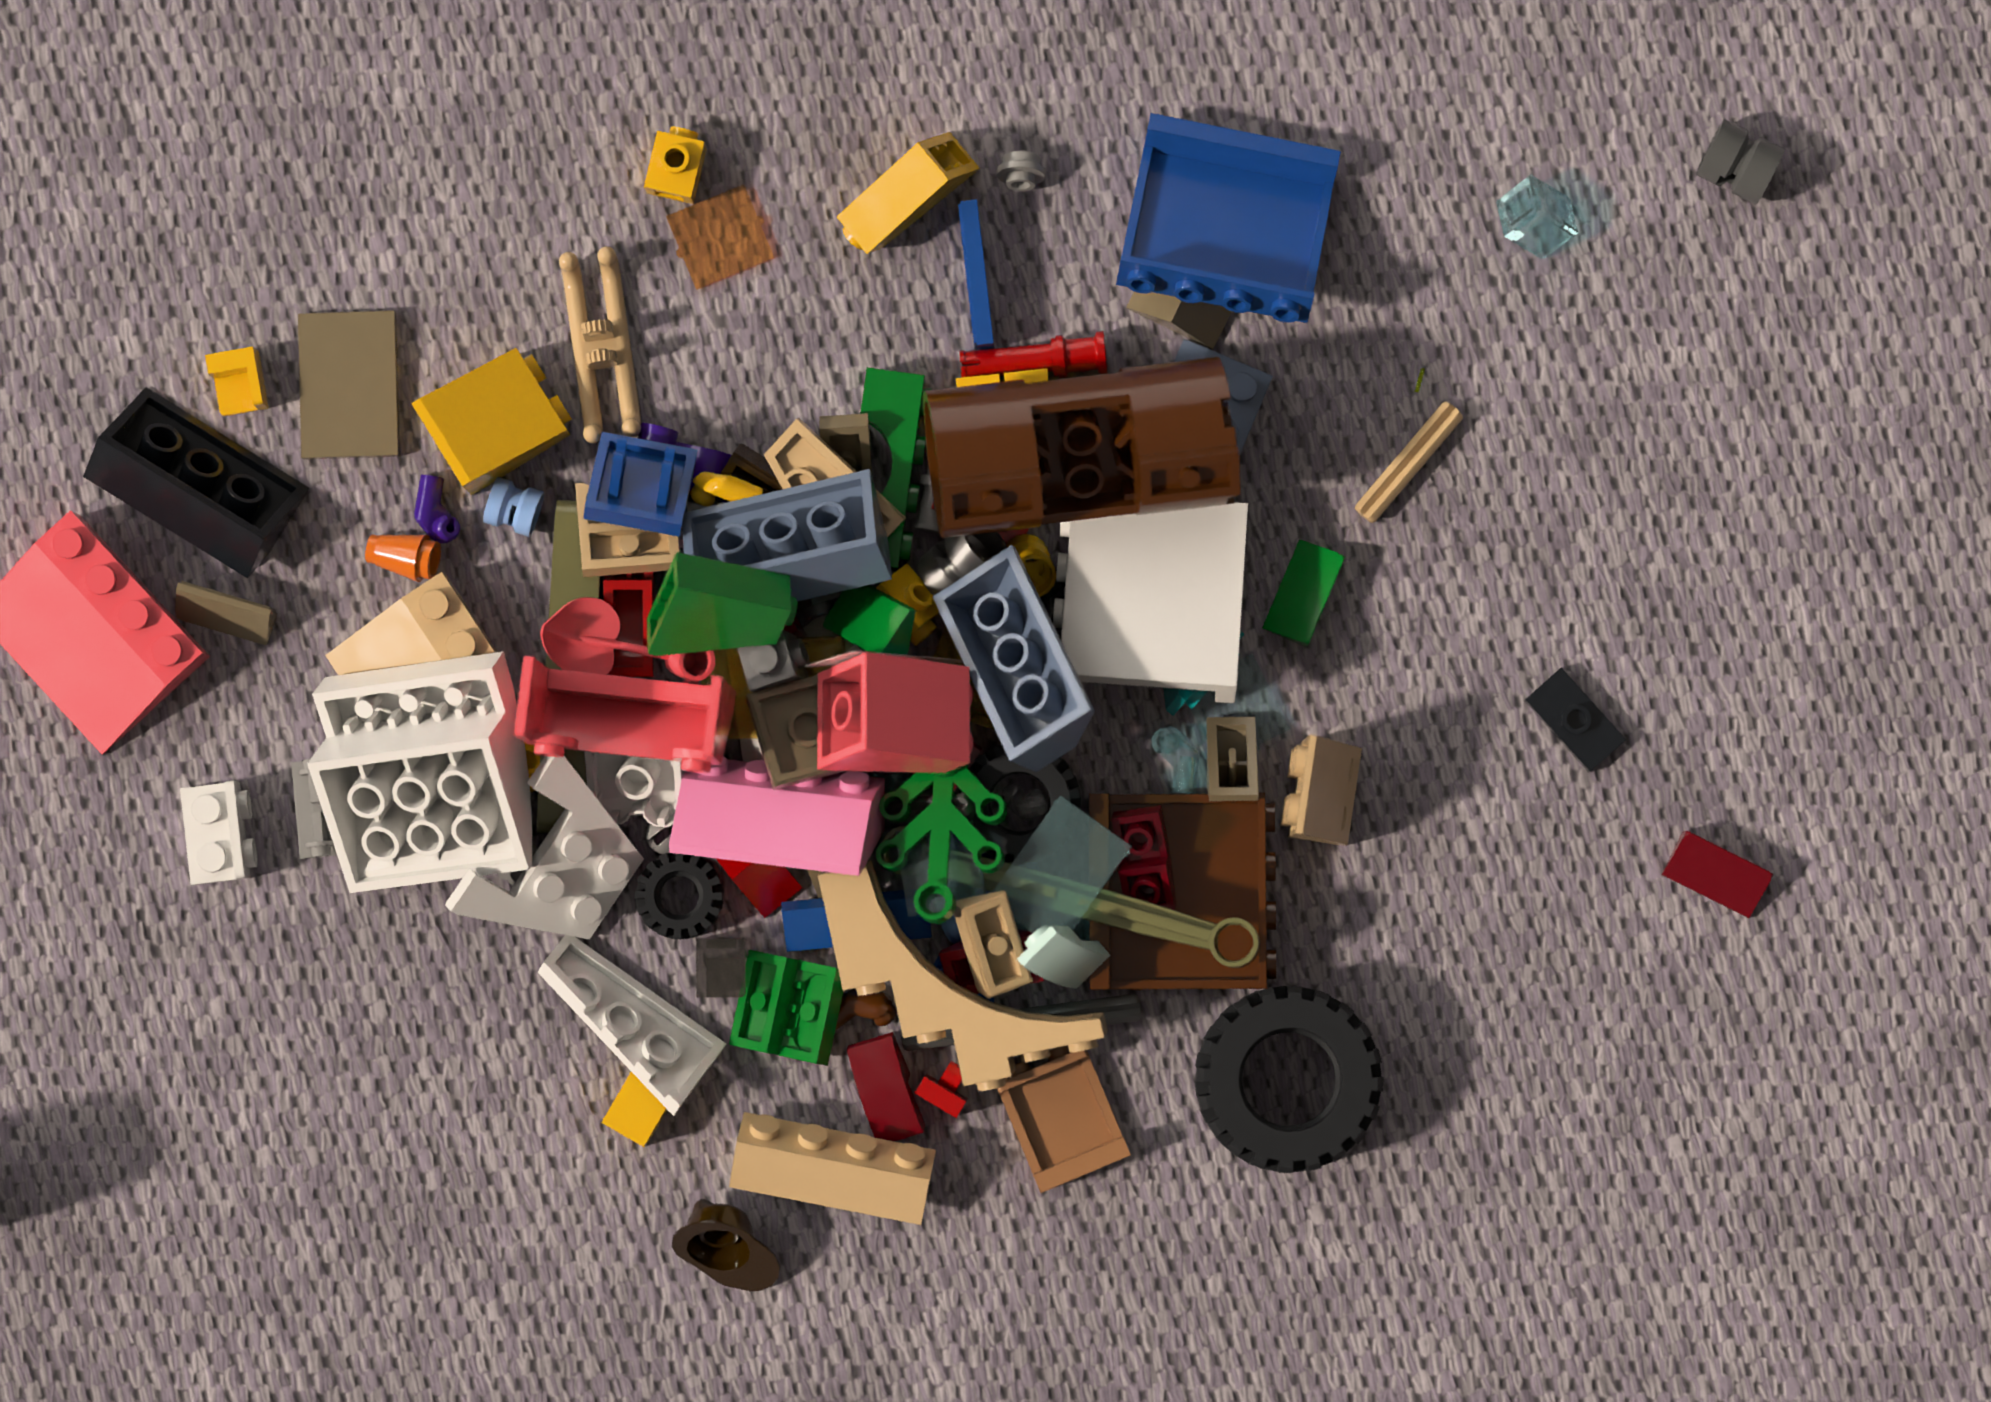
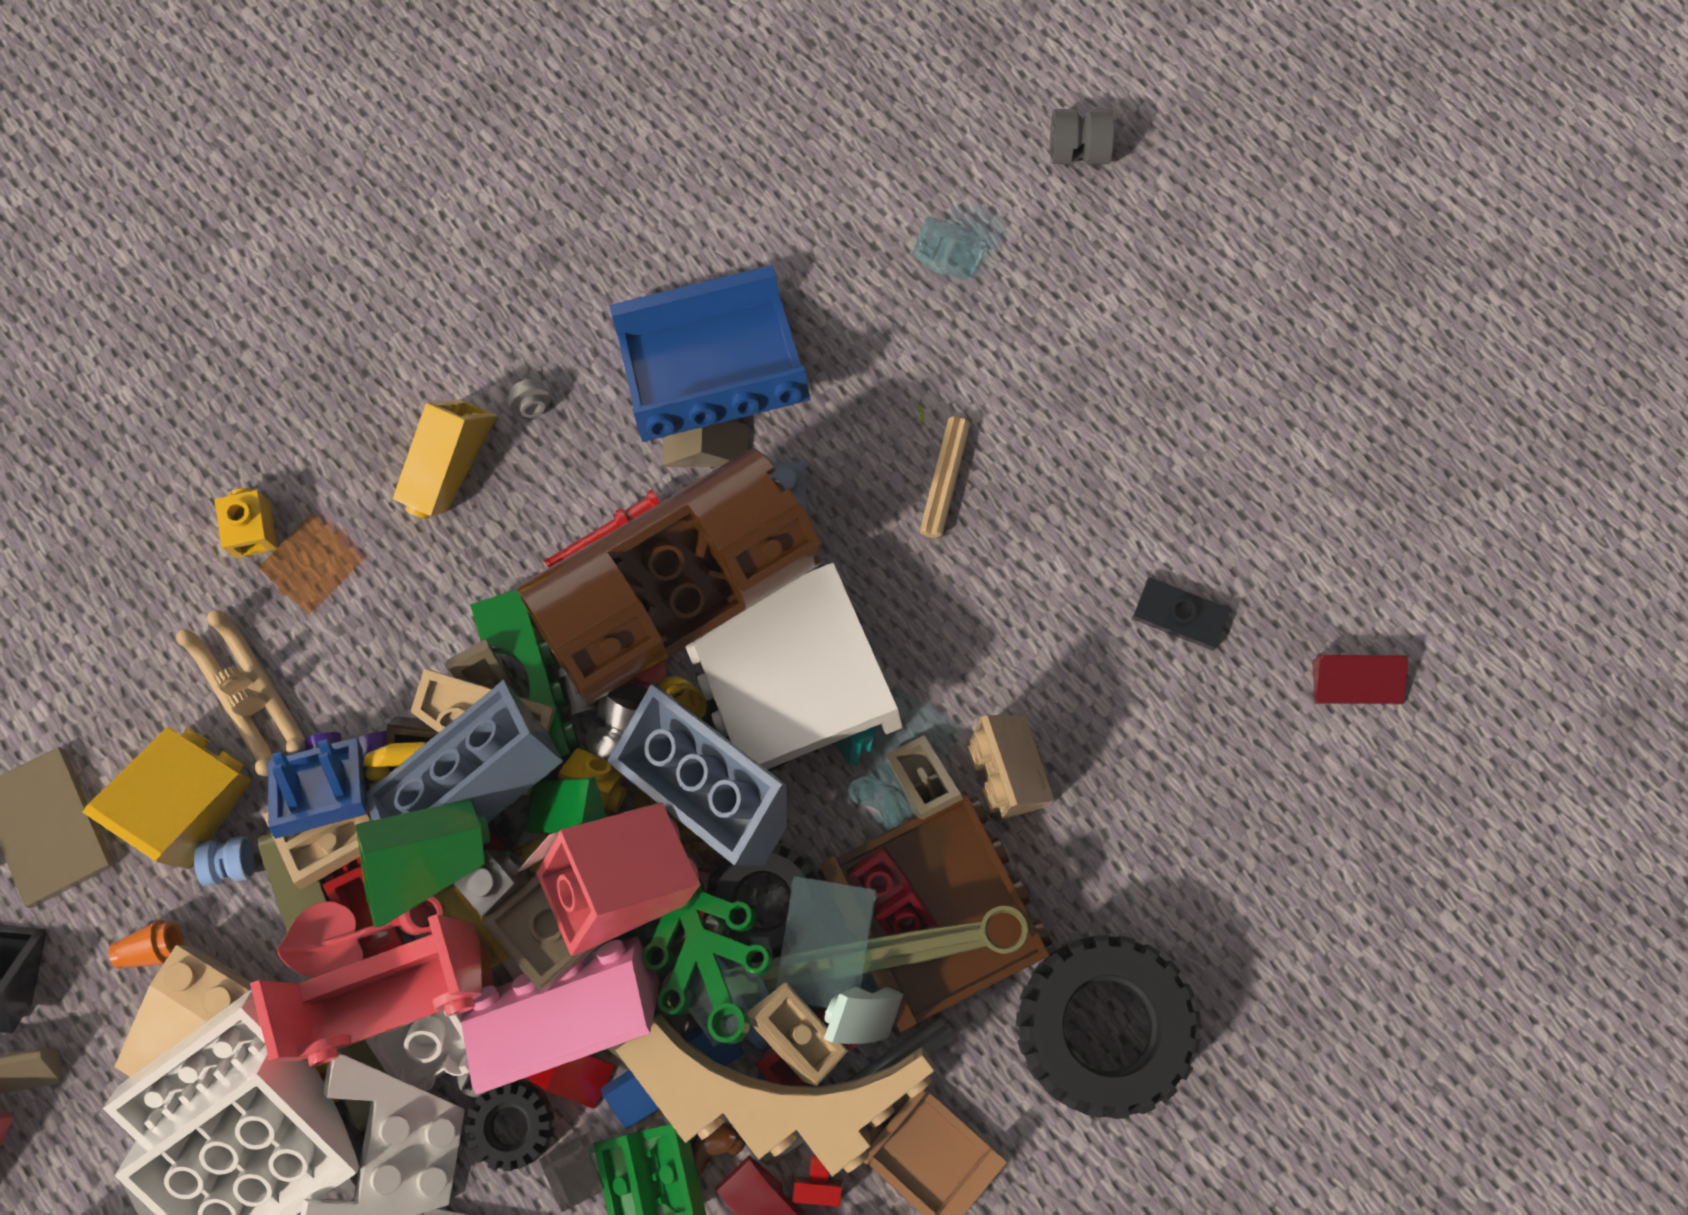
camera: 25 degrees left, 10 degrees down
(431, 513) = (157, 900): dark purple arm -> none
(975, 275) = (528, 492): blue tile -> none
(1303, 592) = (913, 617): green slope -> none

